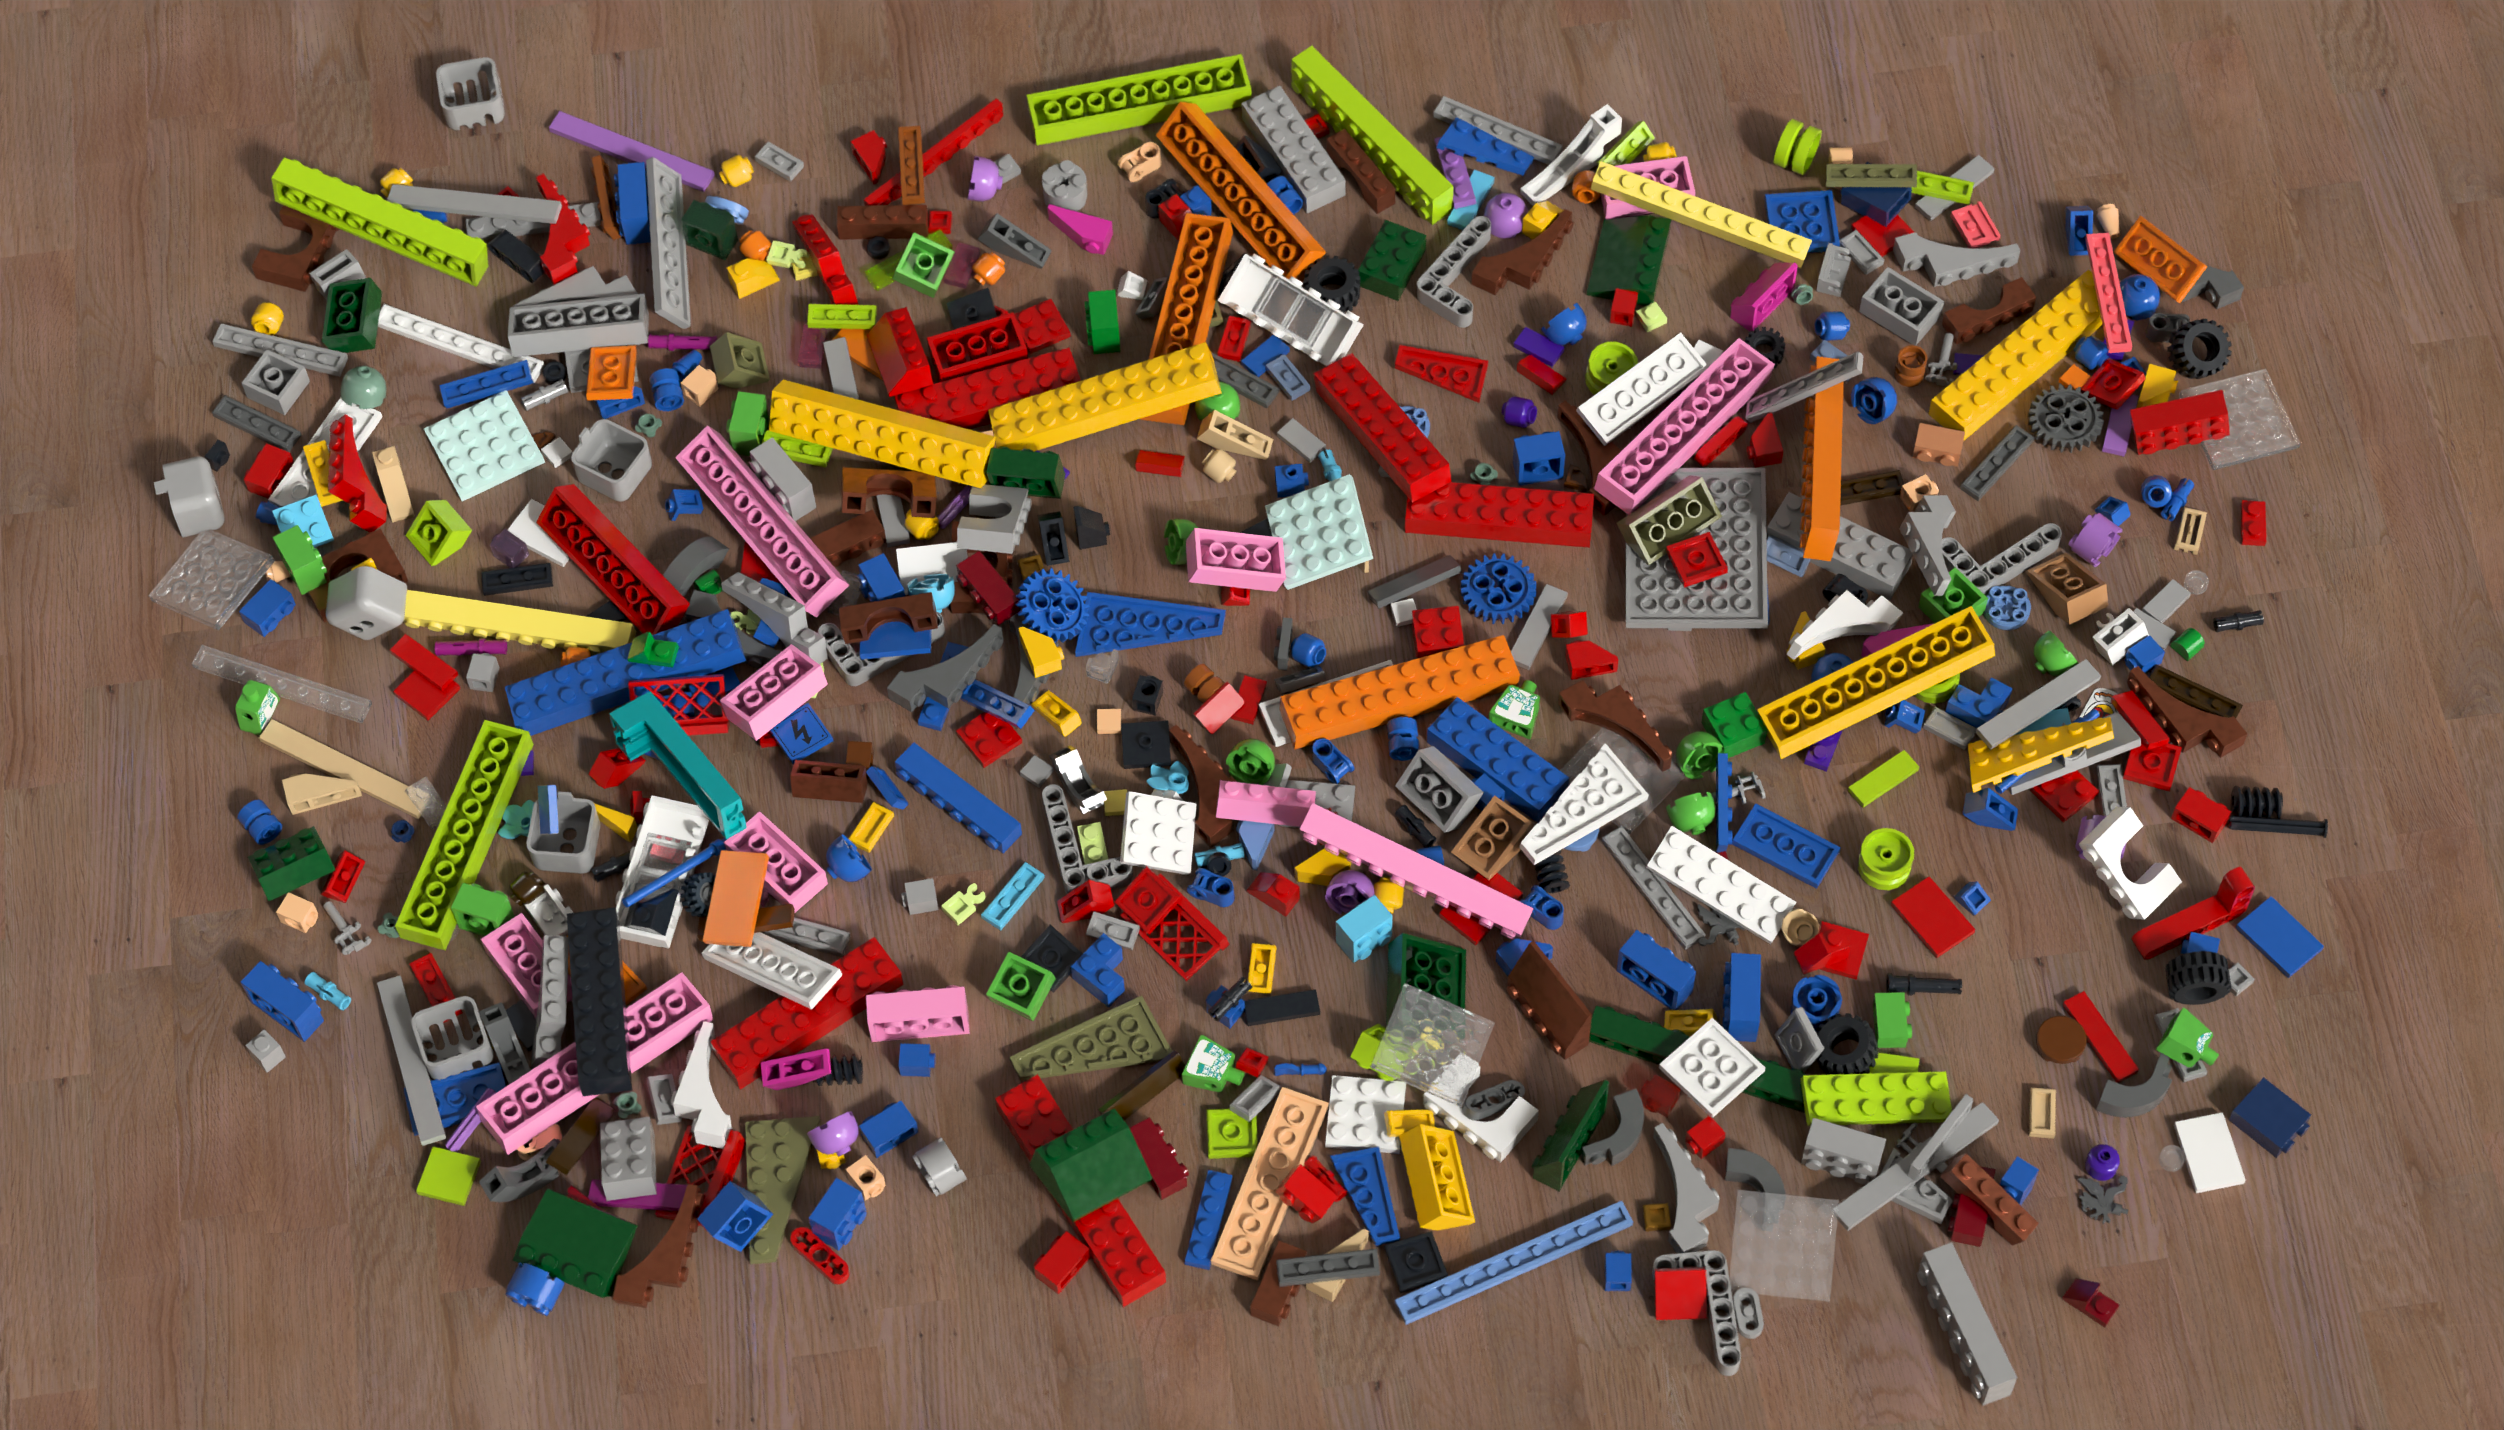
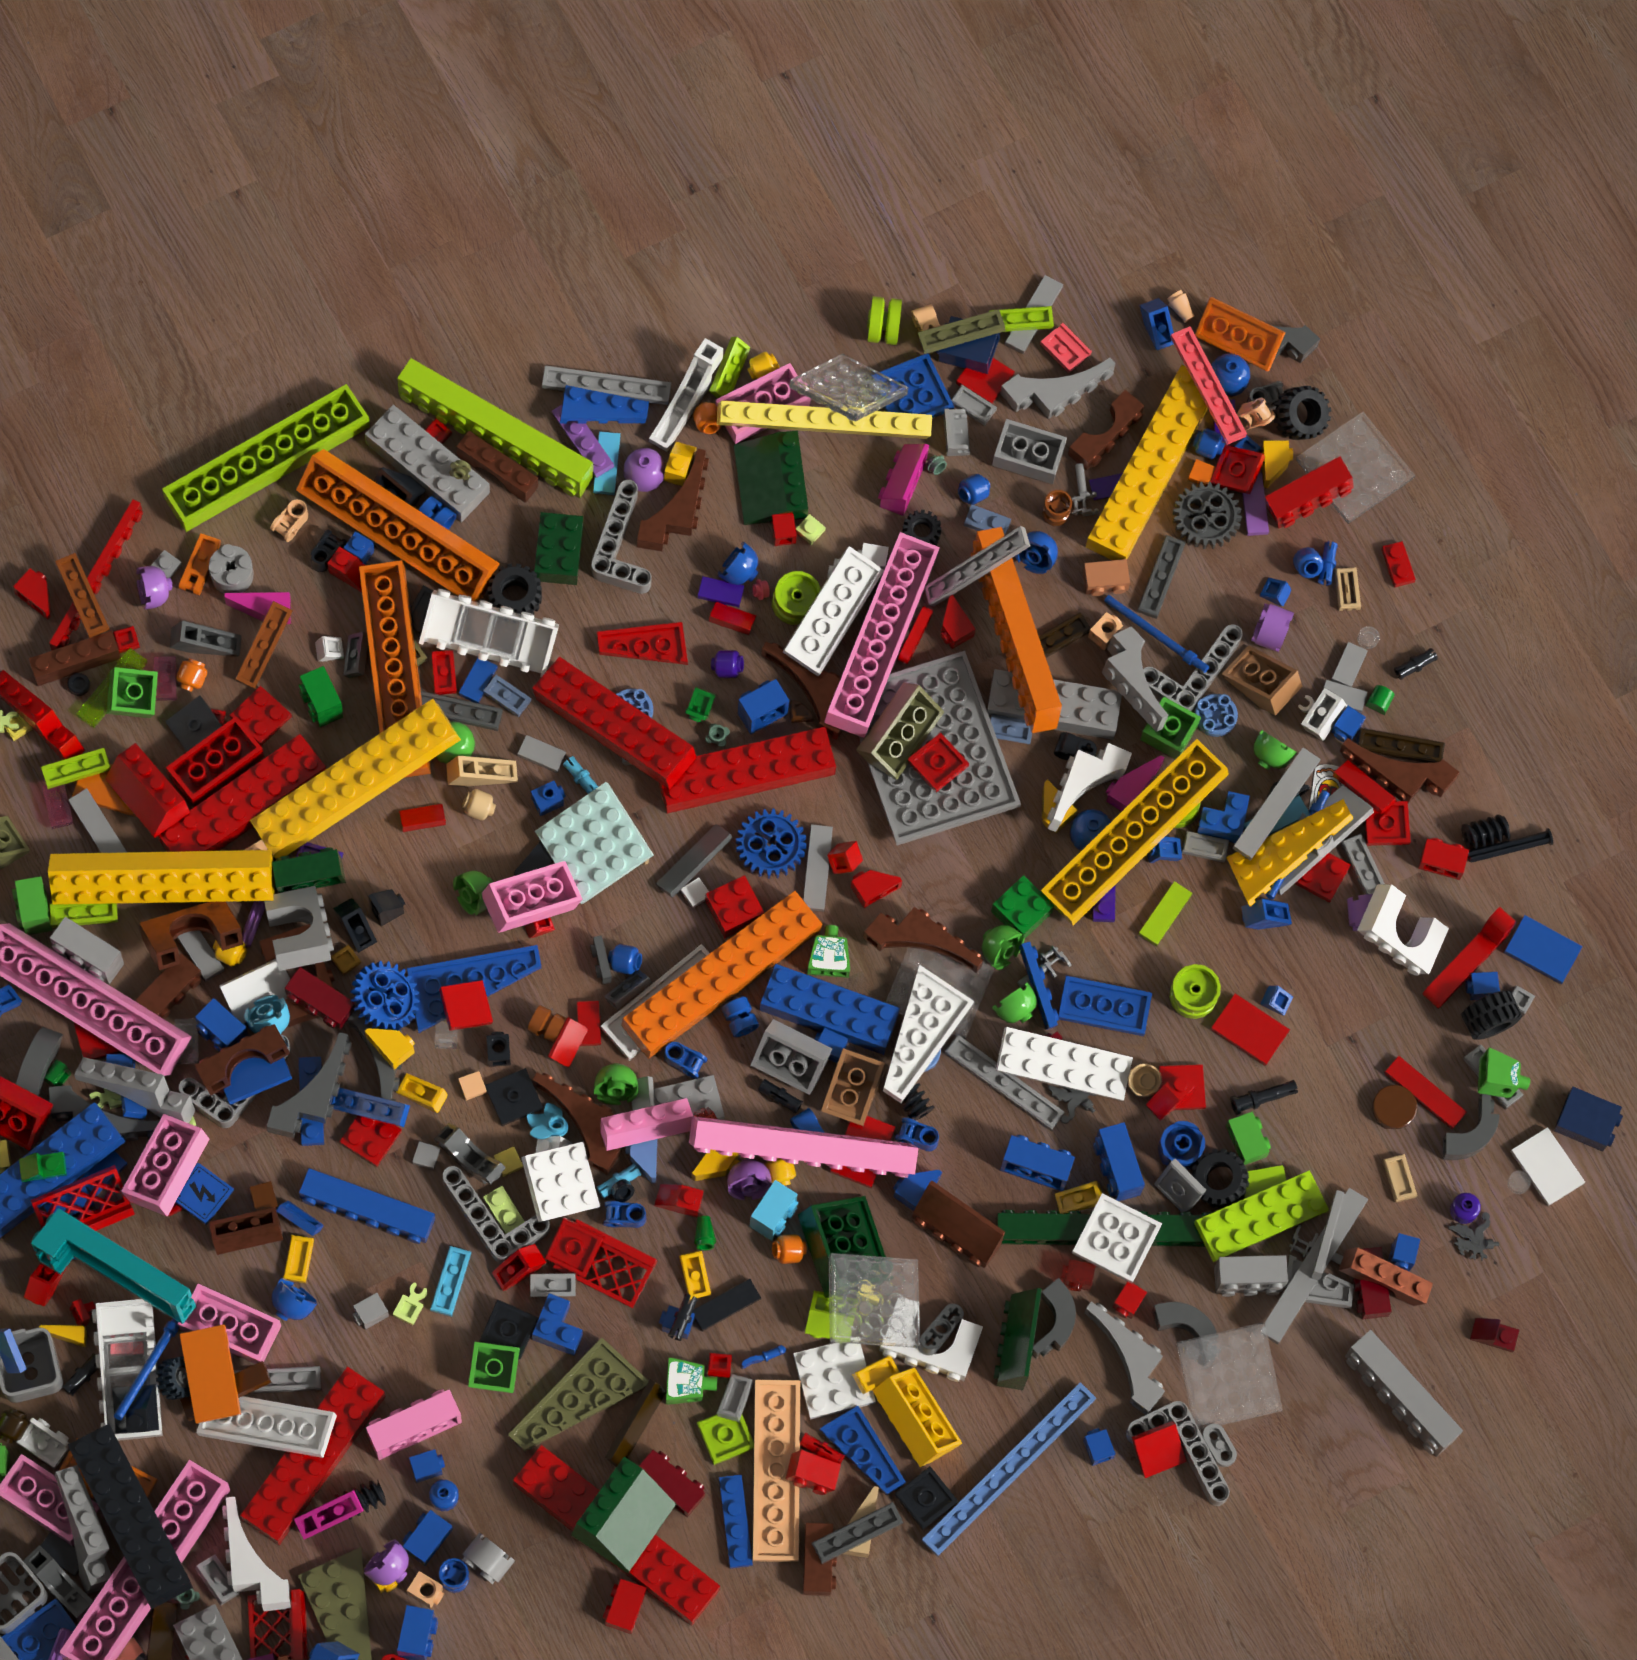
camera: 30 degrees left, 10 degrees up
(899, 1172) = (454, 1575): none -> blue wheel
(921, 1093) = (448, 1501): none -> blue head
(1033, 176) = (199, 564): none -> orange plate
(1068, 260) = (264, 644): none -> dark orange plate
(1130, 640) = (466, 1005): none -> red tile
(1285, 934) = (704, 1234): none -> green cone
(1320, 156) = (460, 470): none -> olive plate
(1366, 973) = (789, 1249): none -> orange head
(1477, 441) = (700, 704): none -> green bracket
(1579, 355) = (761, 589): none -> coral plate
(1656, 1217) = (1113, 1385): pearl gold tile -> none
(1736, 192) = (848, 387): none -> clear plate
(1995, 539) = (1188, 656): none -> blue bar
(2149, 337) = (1255, 414): none -> light nougat piece

